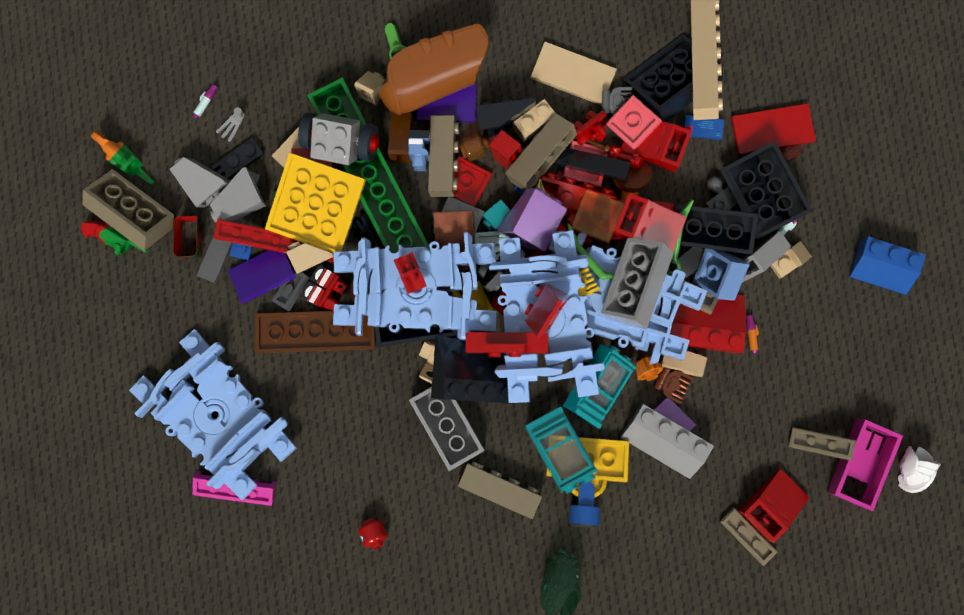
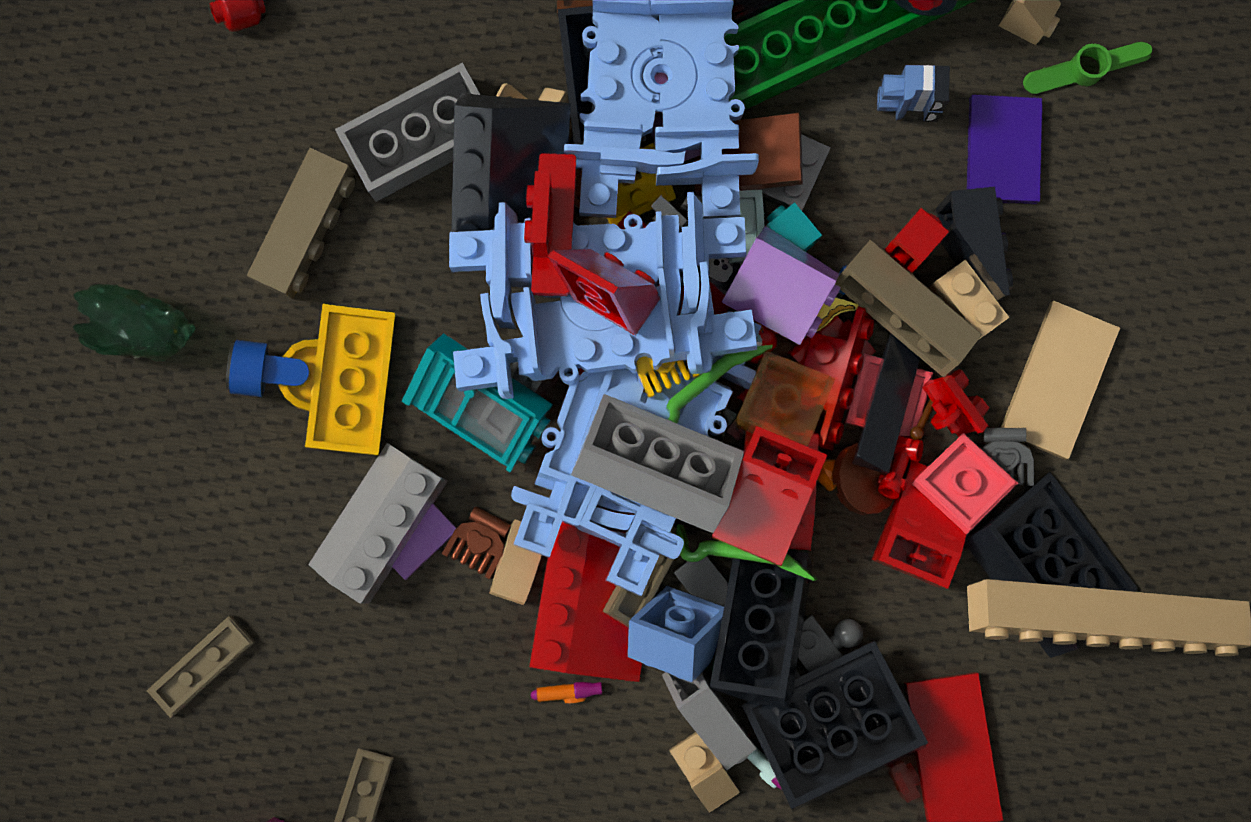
camera: 90 degrees right, 0 degrees up
(399, 138) = (924, 47): reddish brown slope -> none
(410, 273) = (684, 56): red hips -> none
(434, 69) = (1064, 113): dark orange animal -> none
(442, 156) = (903, 135): dark tan brick -> none
(471, 181) = (857, 181): red tile -> none
(474, 146) = (920, 189): clear orange head -> none
(561, 450) = (363, 329): teal door -> none
(647, 371) = (500, 492): orange piece -> none
(704, 128) = (952, 622): blue tile -> none
(774, 506) = (250, 715): red slope -> none

